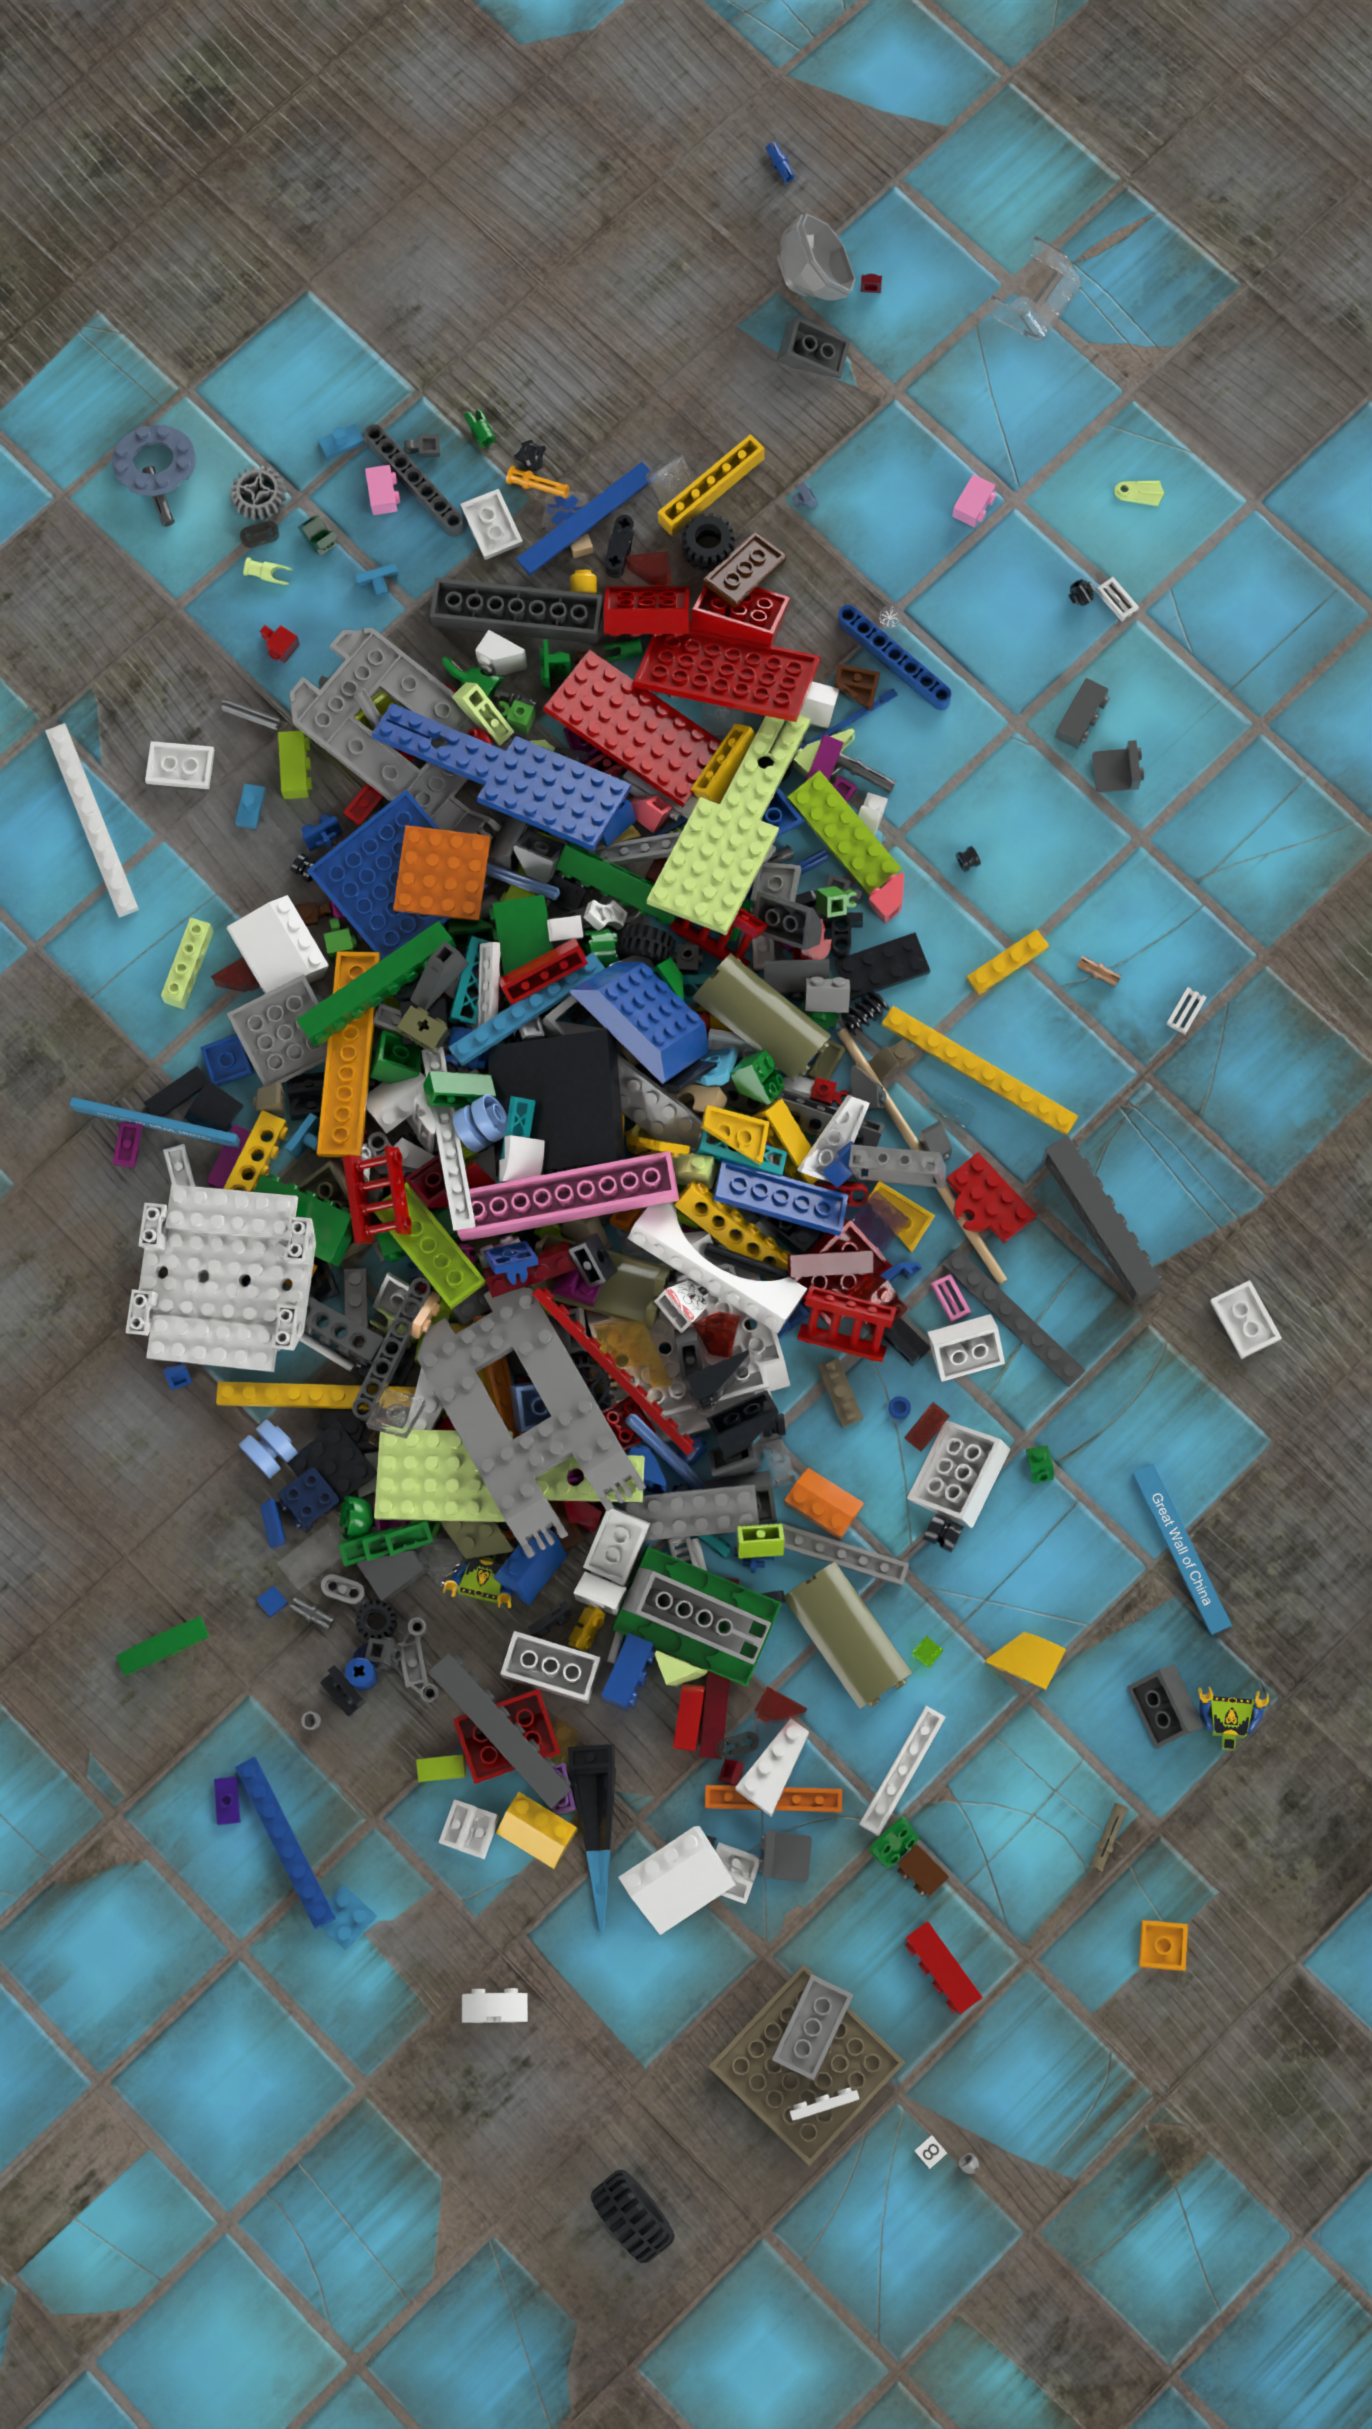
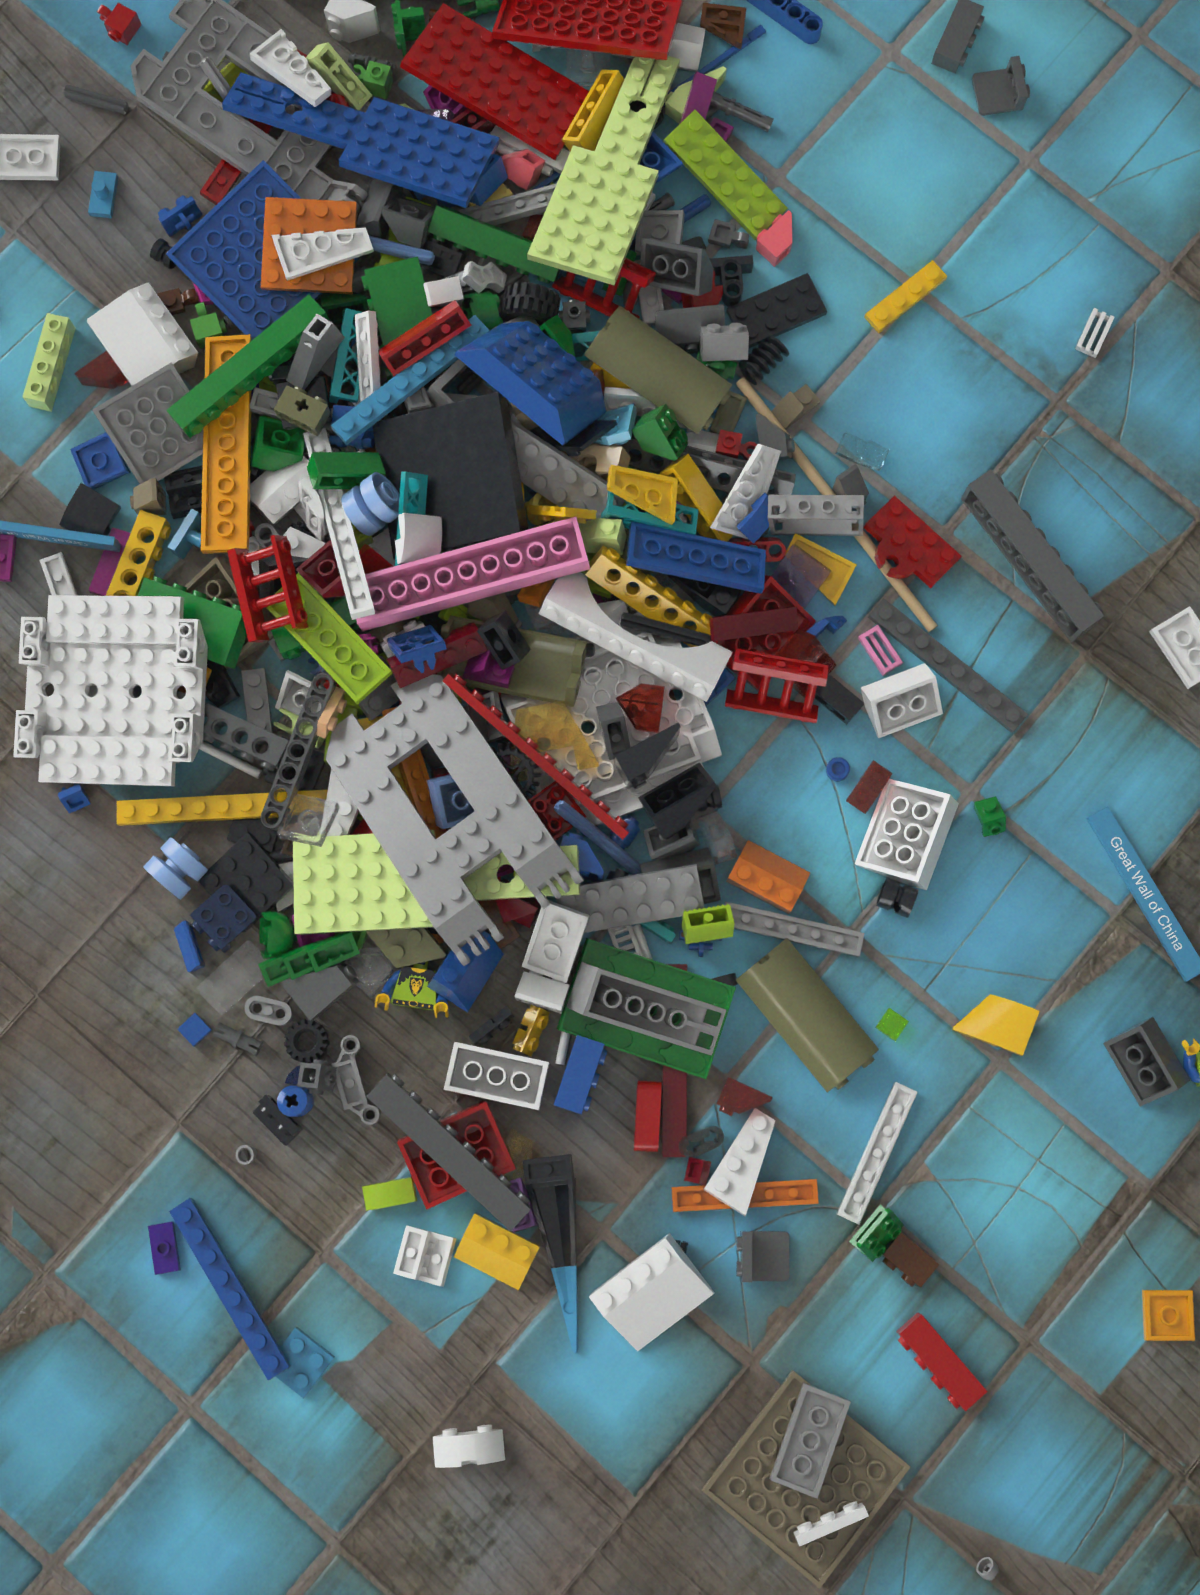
camera: 10 degrees left, 5 degrees up
(162, 1646) = (80, 1088): green slope -> none
(176, 1093) = (49, 499): black tile -> none
(294, 764) = (145, 147): lime brick -> none
(436, 701) = (284, 62): none -> white wing
(444, 881) = (318, 250): none -> white wing
(475, 674) = (342, 46): green piece -> none
(677, 1671) = (631, 1067): yellowish green slope -> none
(683, 1303) = (603, 678): white torso -> none
(742, 1868) = (717, 1271): white slope -> none
(833, 901) = (722, 245): bright green brick -> none
(840, 1392) = (774, 758): dark tan plate -> none
(872, 811) = (752, 150): white slope -> none
(930, 2152) = (945, 1559): white tile -> none
(968, 859) = (855, 193): black wheel -> none
(979, 1070) = (887, 411): yellow plate -> none
(1099, 971) = (1000, 298): medium nougat pin -> none
(1099, 1861) = (1100, 1205): dark tan pin -> none

